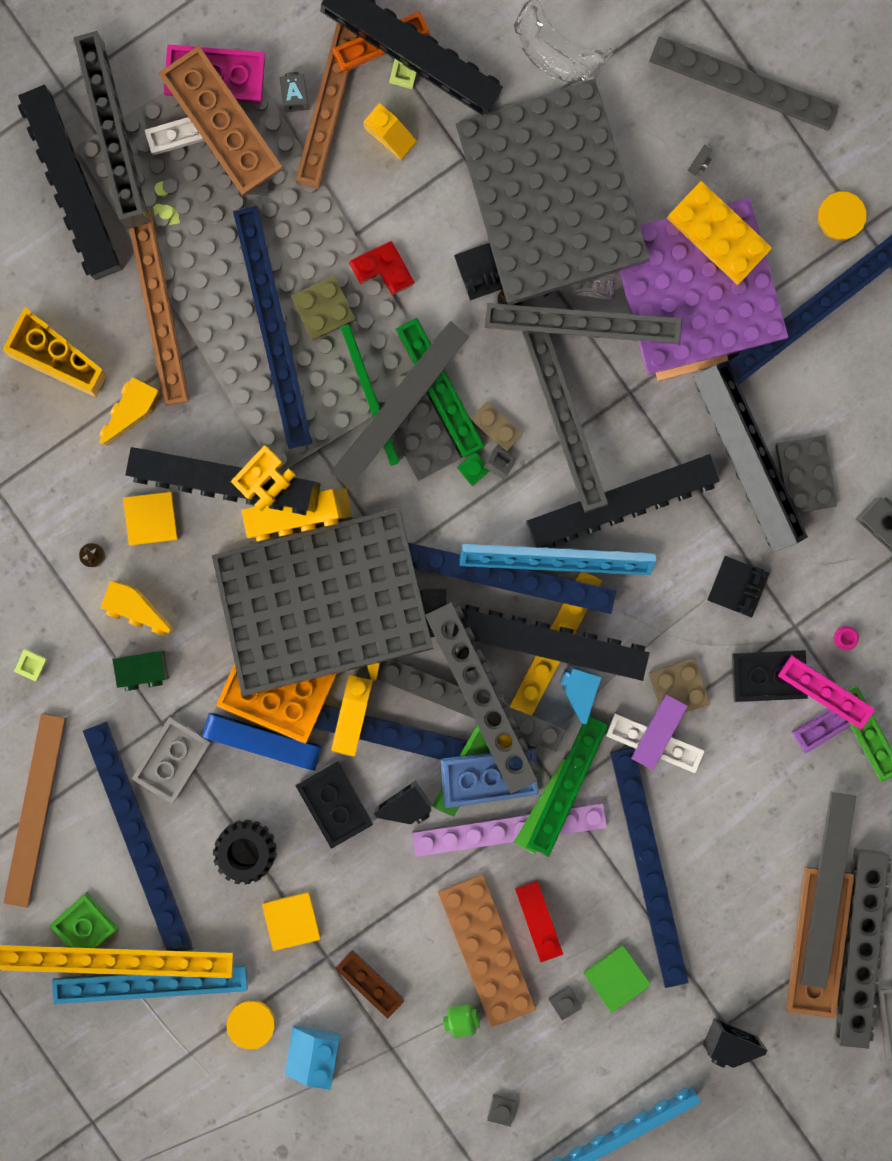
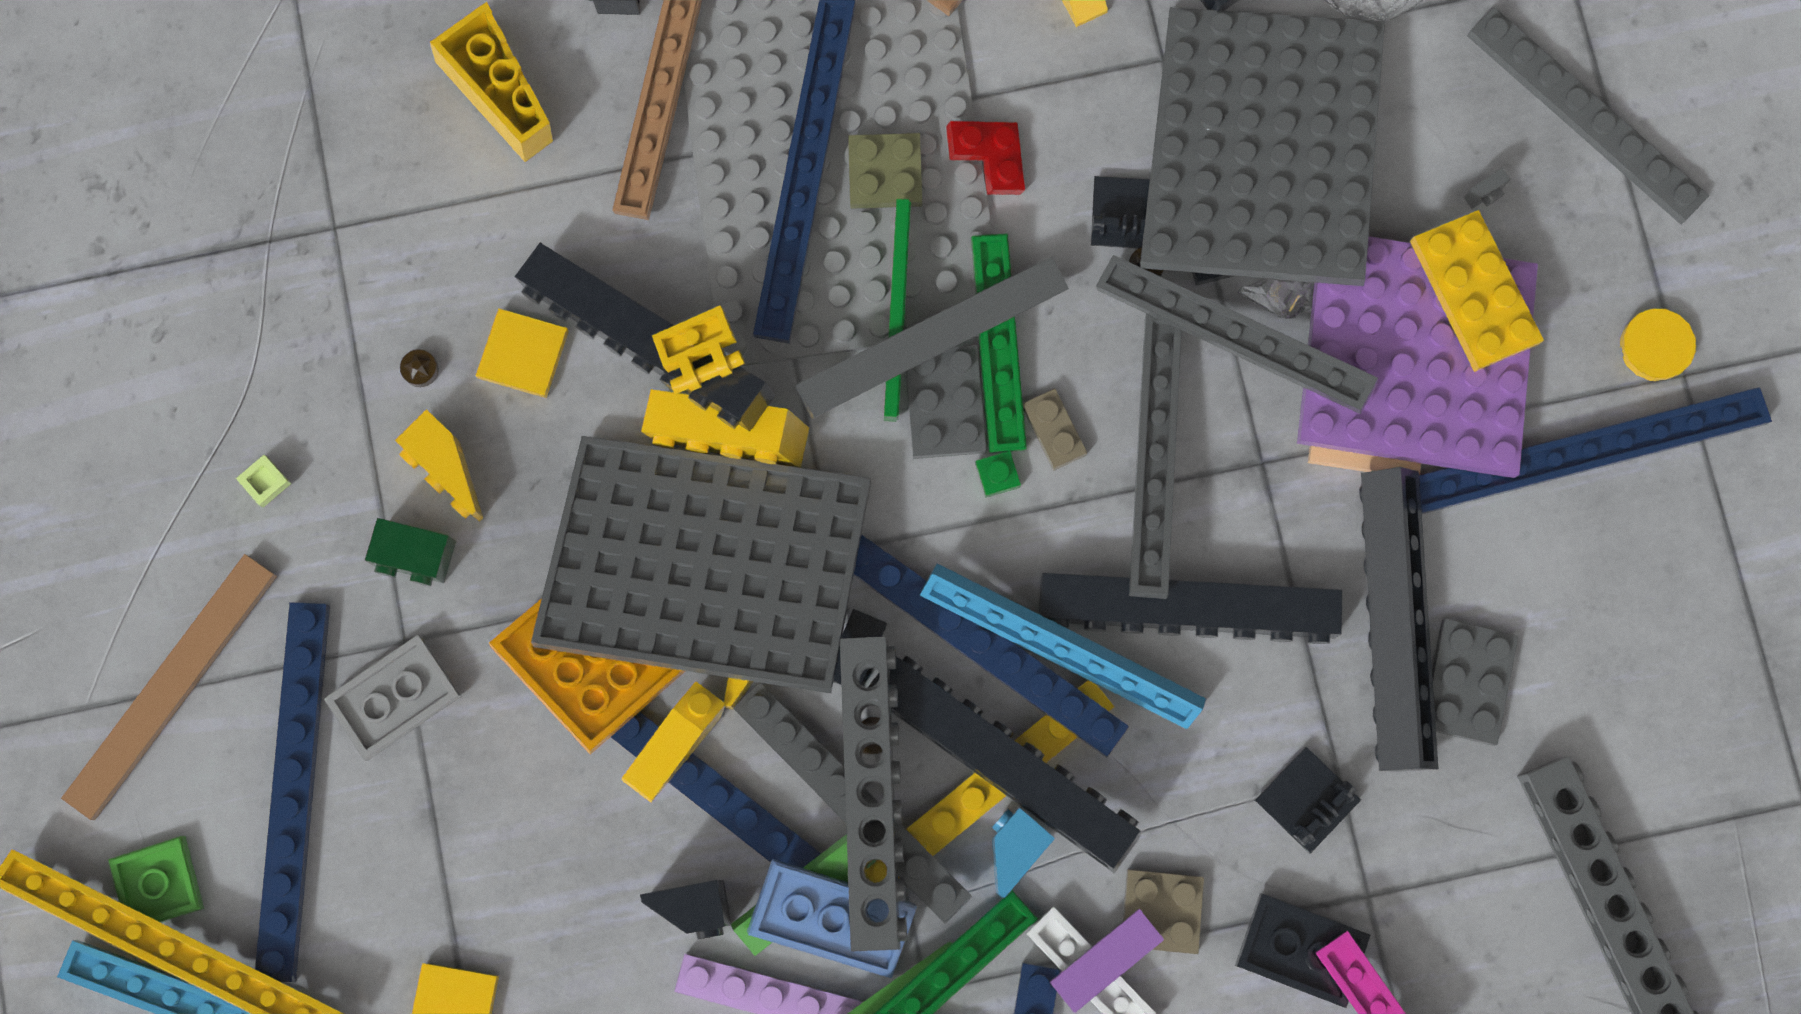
camera: 25 degrees right, 10 degrees down
(135, 406) = (568, 196): yellow slope -> none
(231, 867) = (402, 866): black tyre -> none
(261, 741) = (531, 726): blue beam -> none
(334, 804) = (591, 863): black plate -> none
(500, 462) = (1039, 479): dark grey plate -> none
(846, 638) = (1437, 943): dark pink plate -> none

